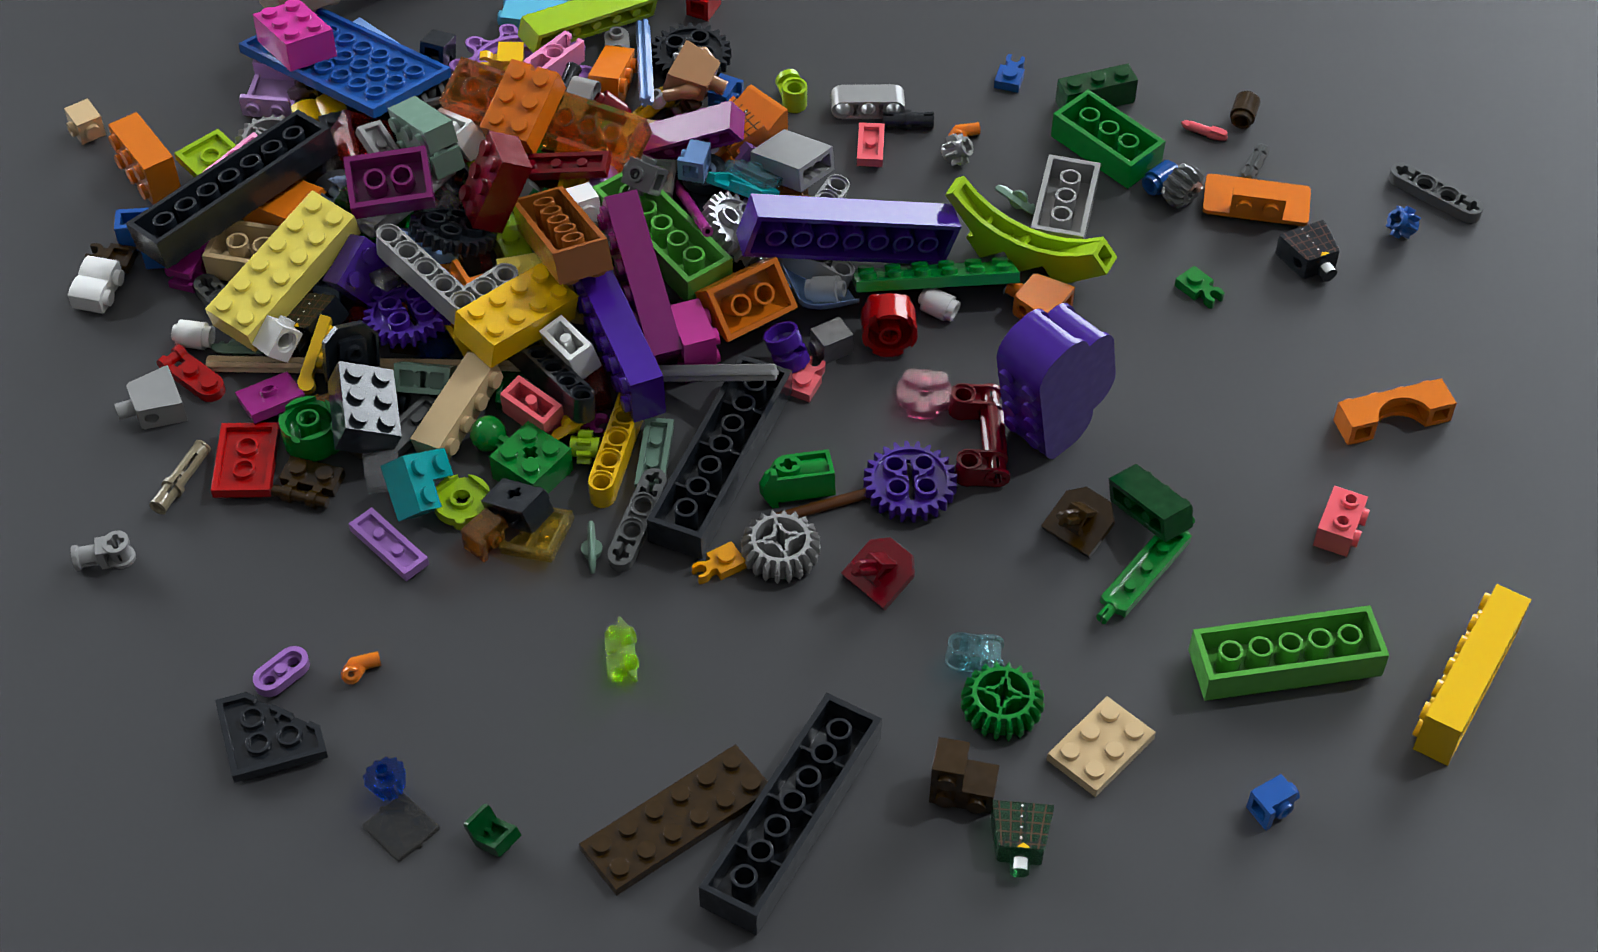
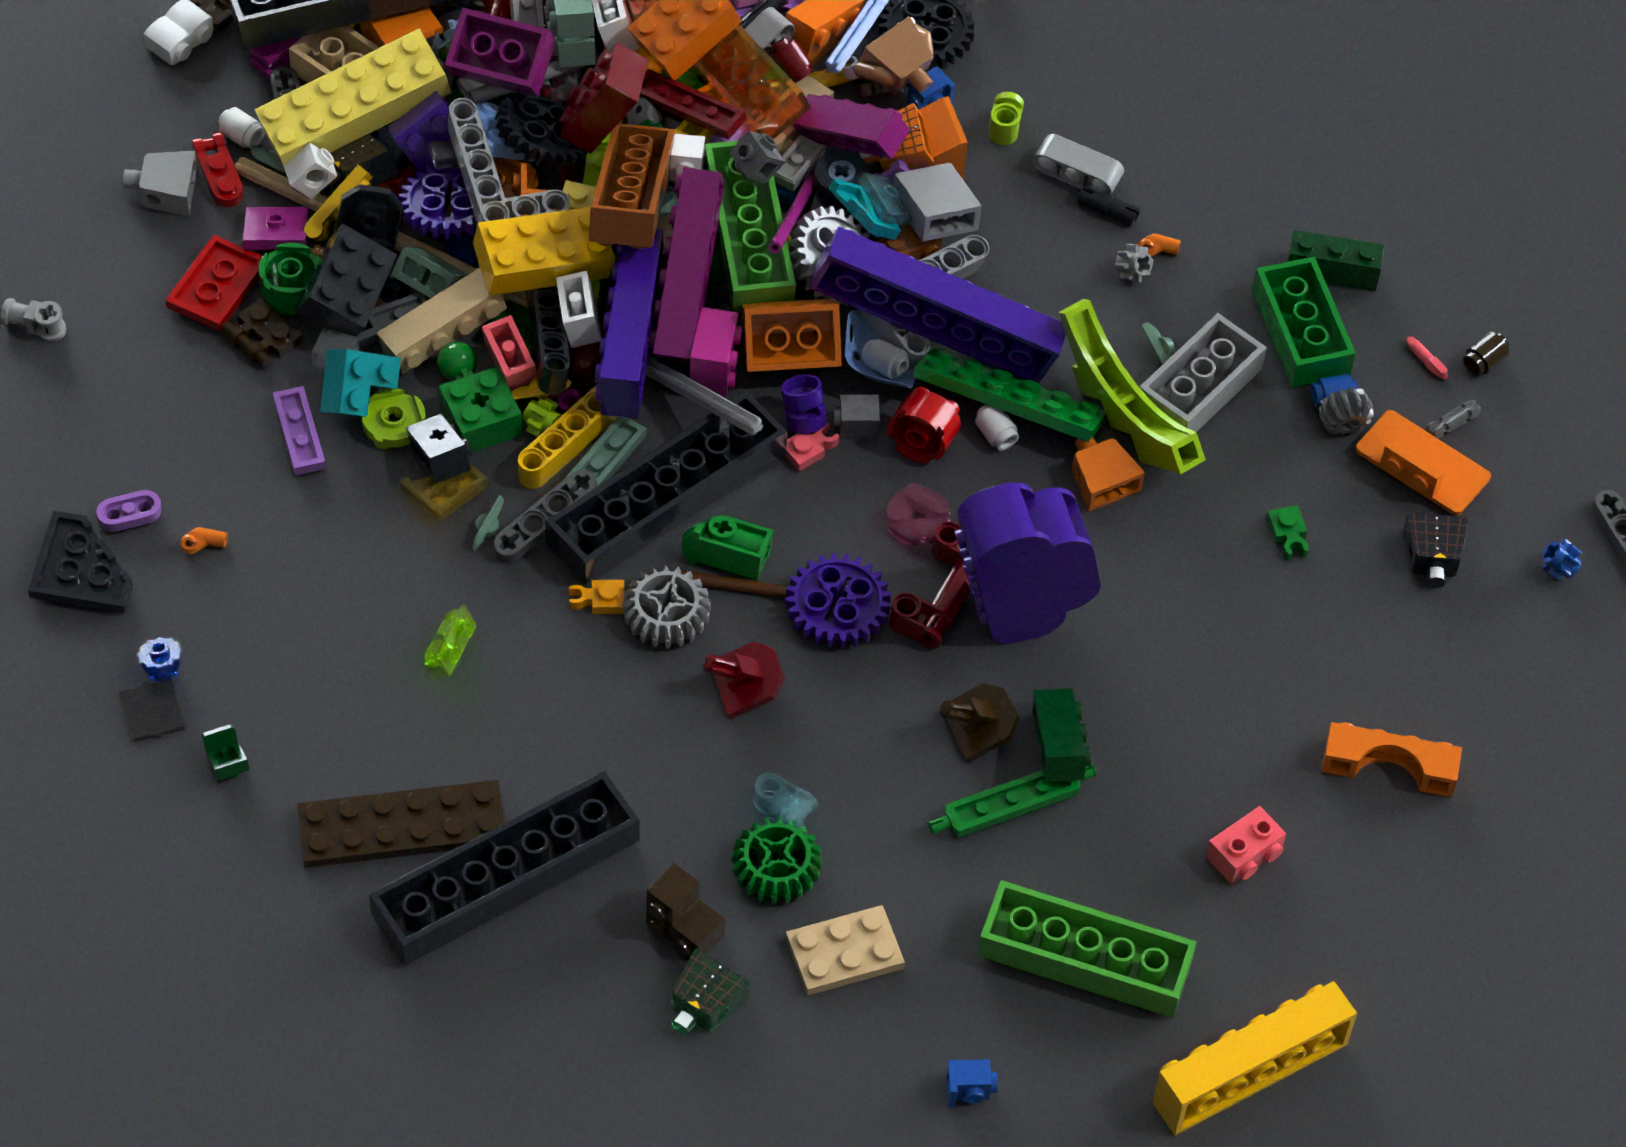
camera: 25 degrees right, 5 degrees up
(163, 498) = (147, 271): dark tan pin -> none
(484, 533) = (393, 461): clear orange brick -> none
(694, 161) = (831, 159): medium blue brick -> none
(870, 144) = (1048, 216): coral plate -> none
(1010, 75) = (1258, 202): blue plate -> none

